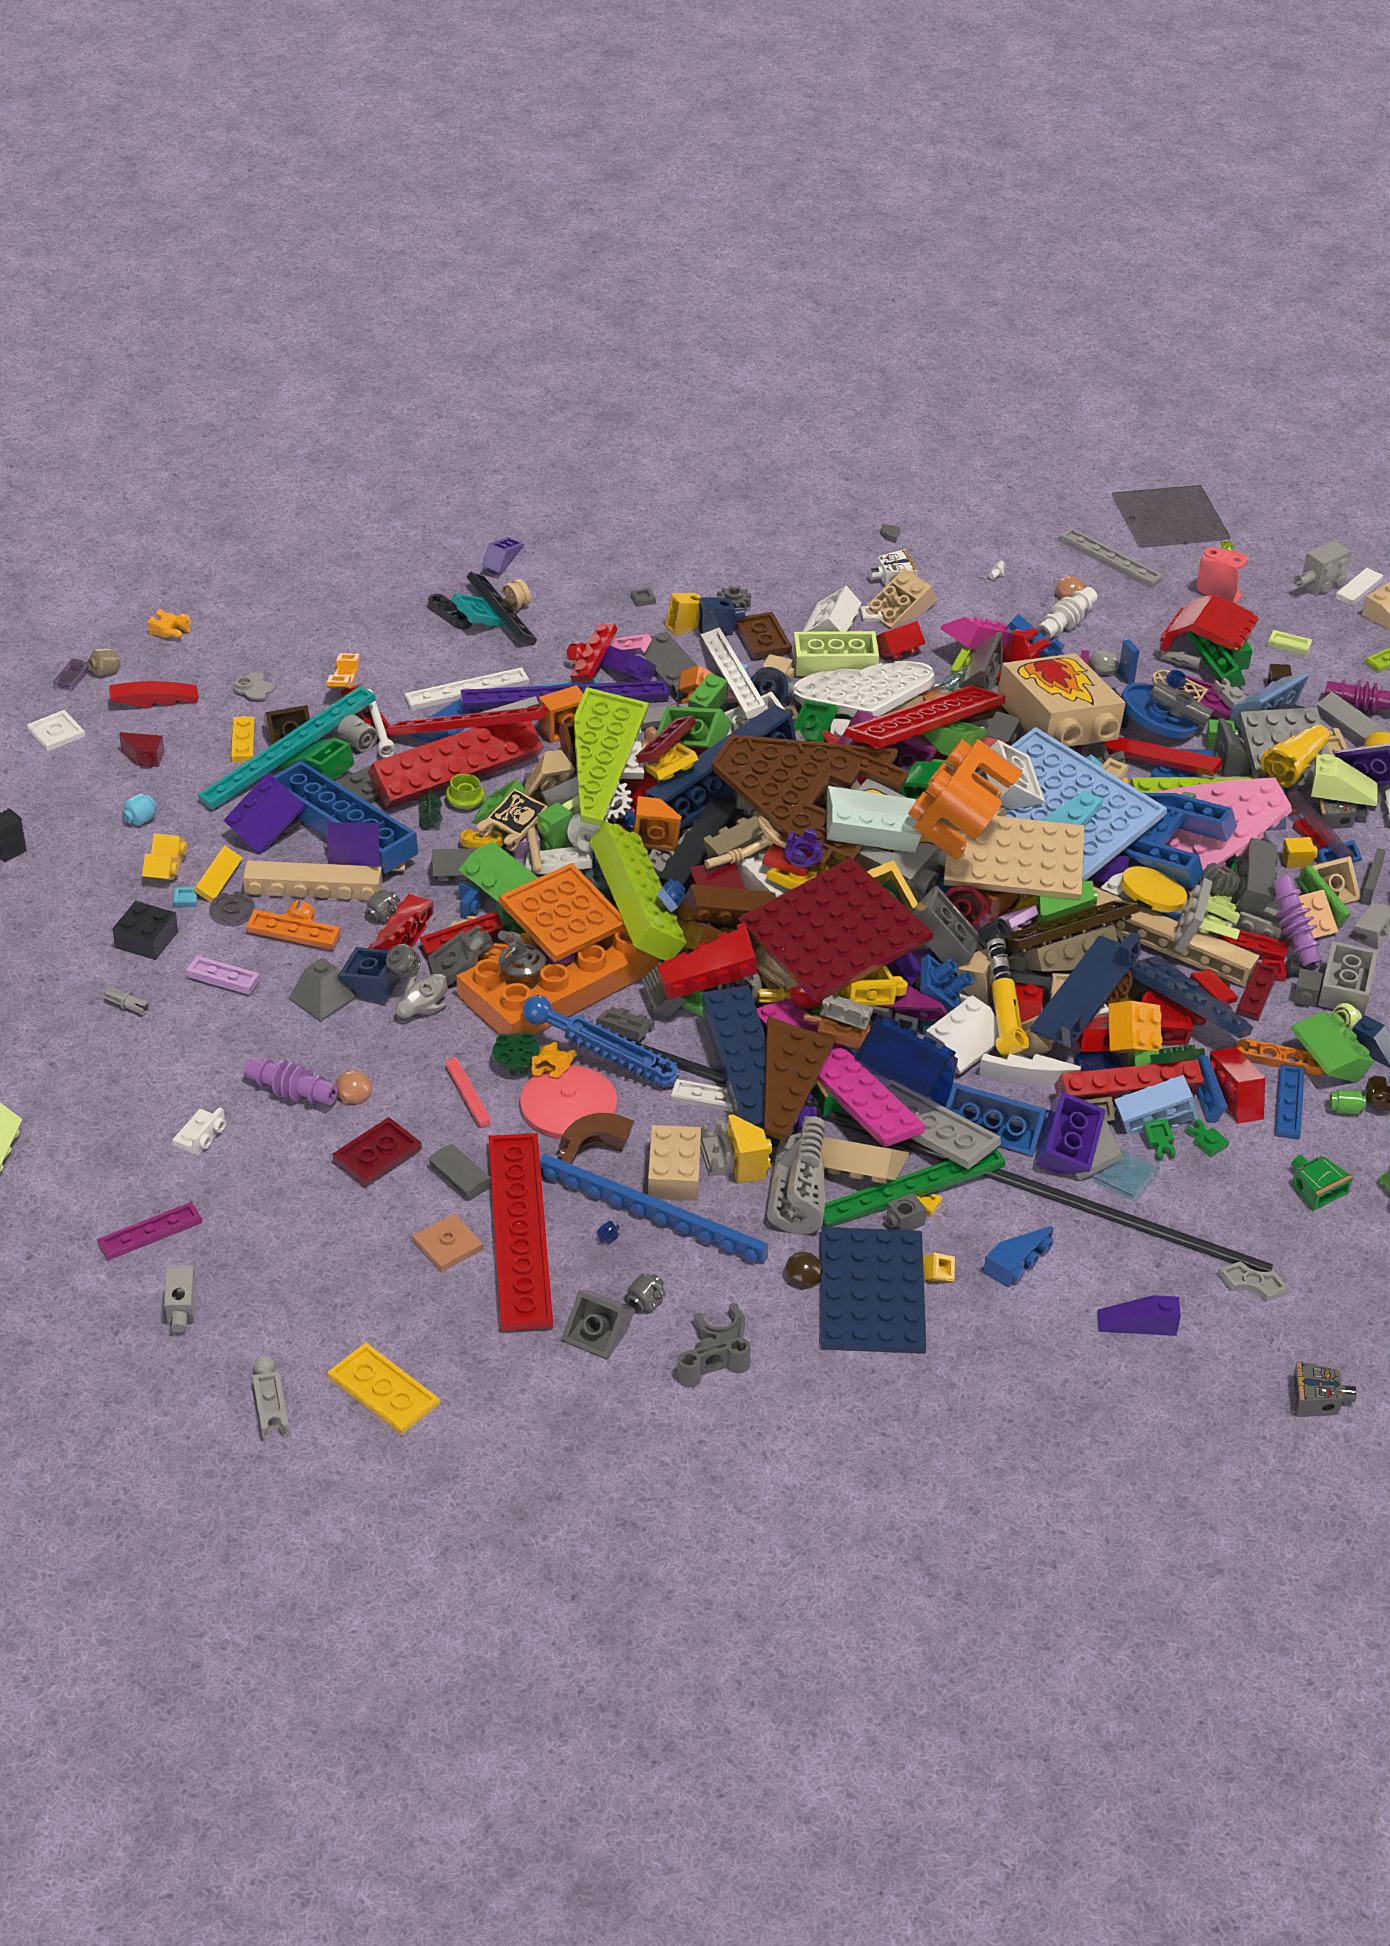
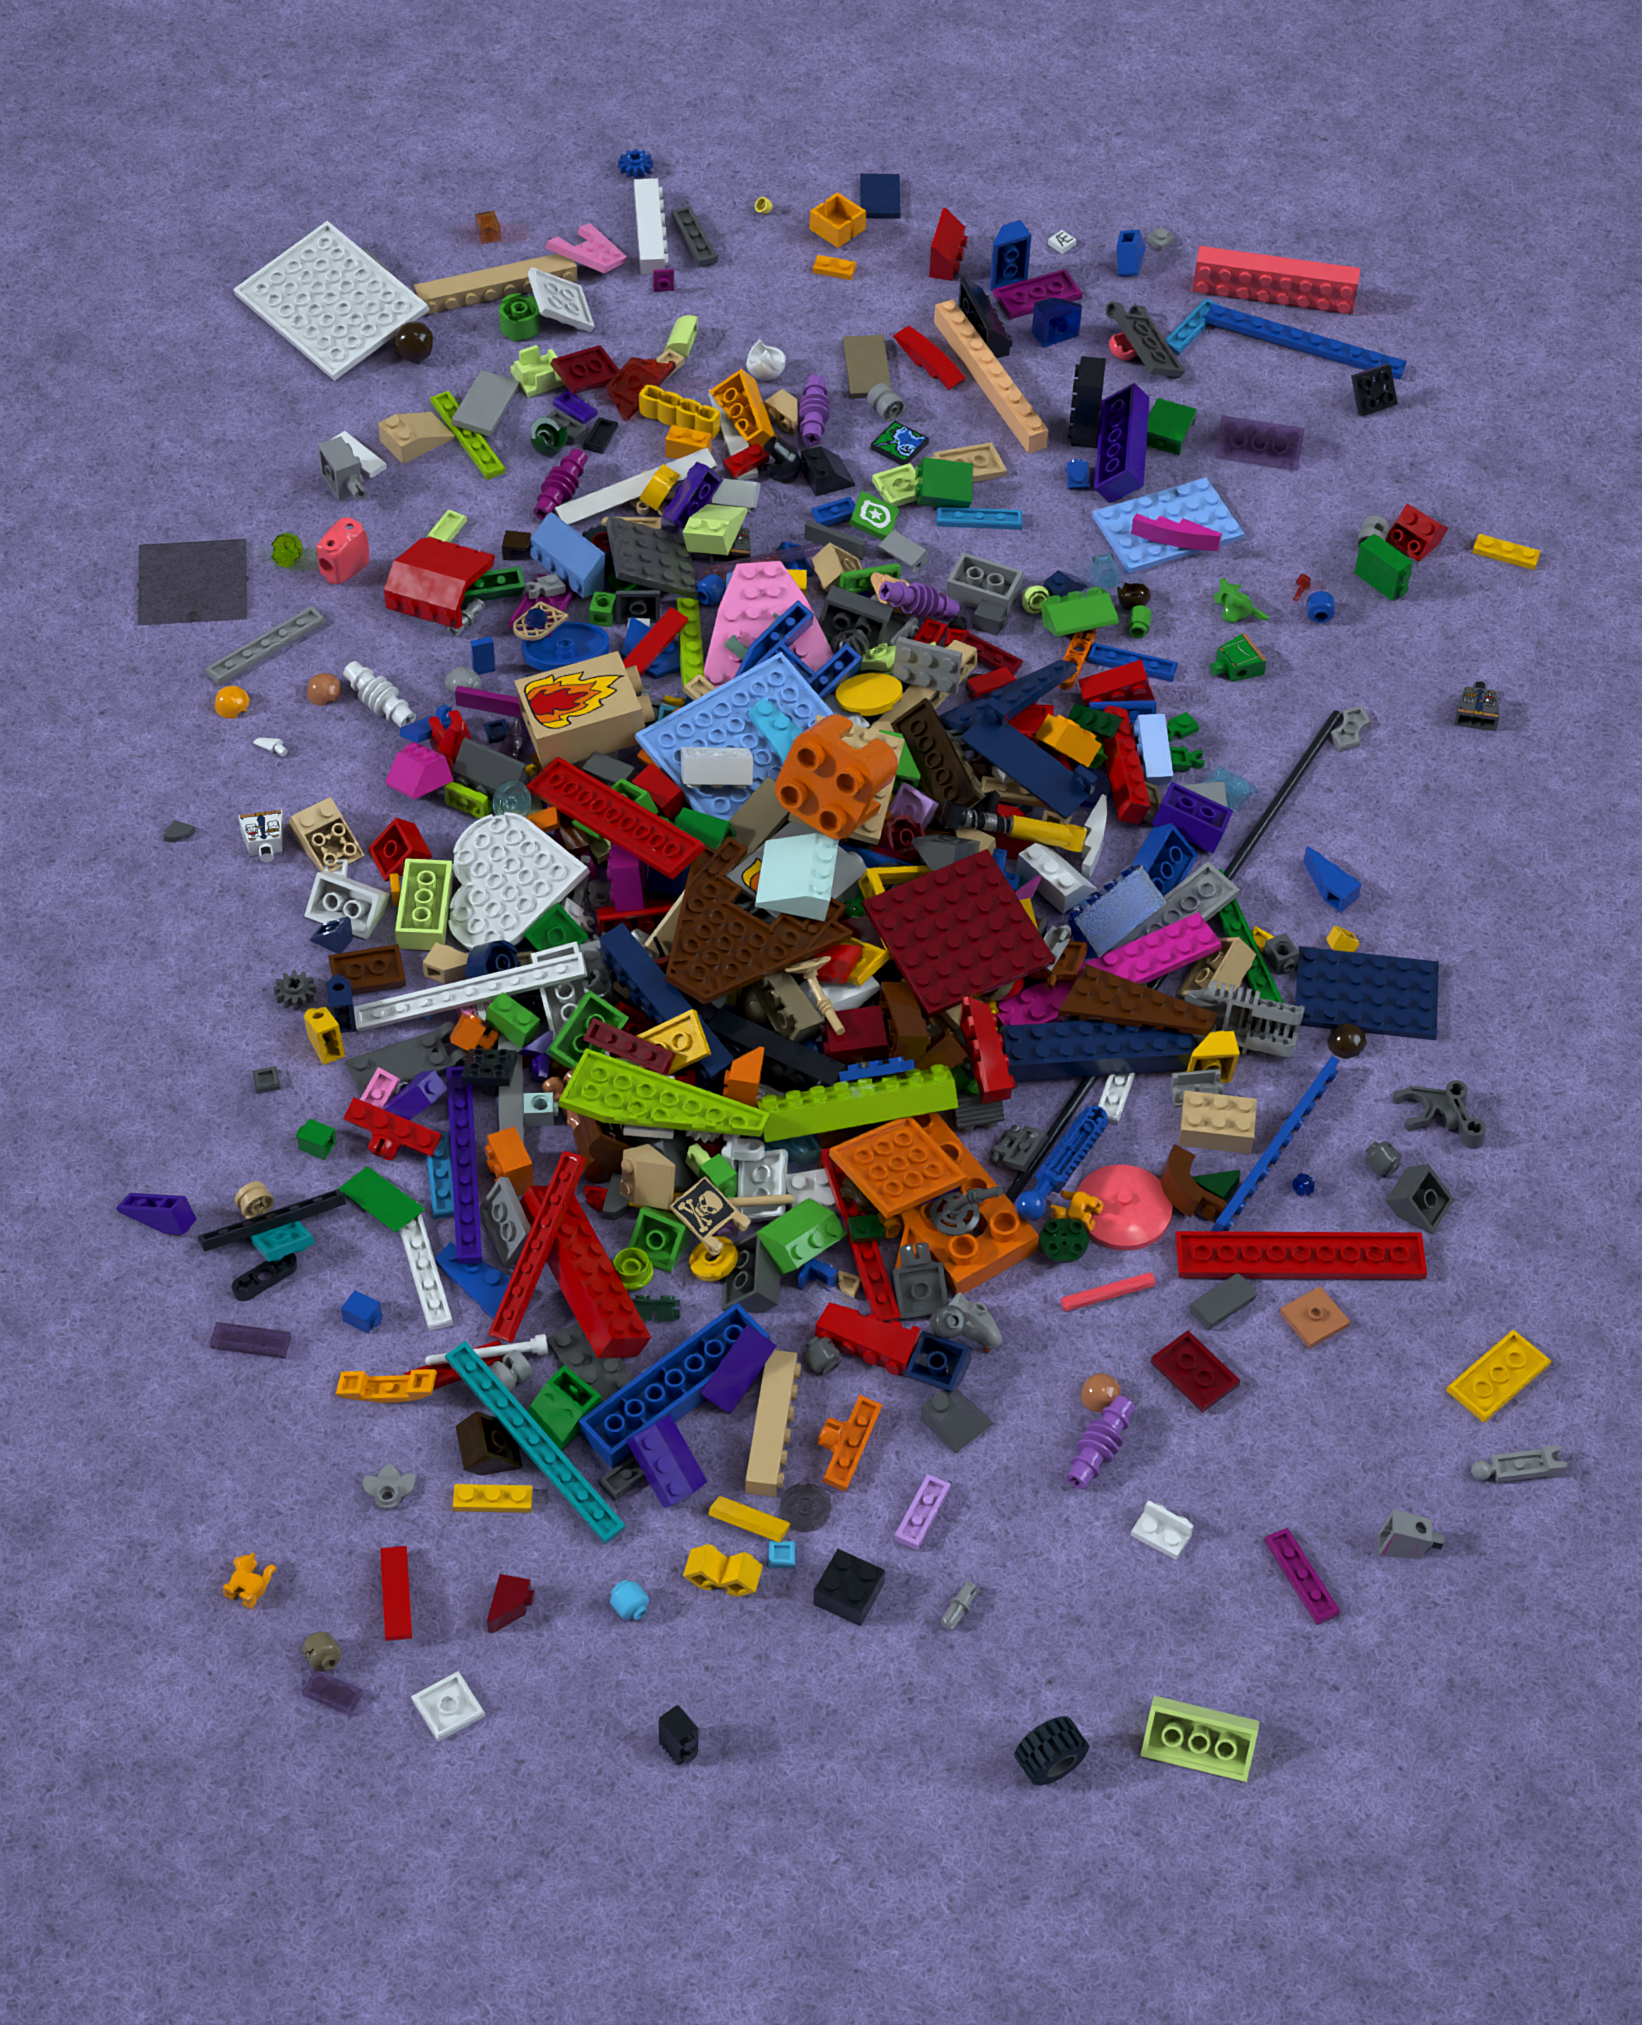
camera: 85 degrees left, 10 degrees up
(387, 608) = (250, 1340): none -> clear purple plate
(415, 656) = (361, 1312): none -> blue brick
(528, 661) = (381, 1199): none -> green piece
(582, 622) = (316, 1138): none -> green brick
(594, 1159) = (1219, 1184): none -> dark green slope
(658, 691) = (489, 1068): none -> black plate
(794, 614) = (334, 935): none -> dark blue slope
(806, 842) = (849, 933): dark purple piece -> none
(1039, 544) = (231, 701): none -> light orange hair
(1142, 1316) = (1399, 807): dark purple slope -> none
(1181, 703) = (568, 624): dark grey piece -> none
(1293, 756) = (685, 550): yellow cone -> none

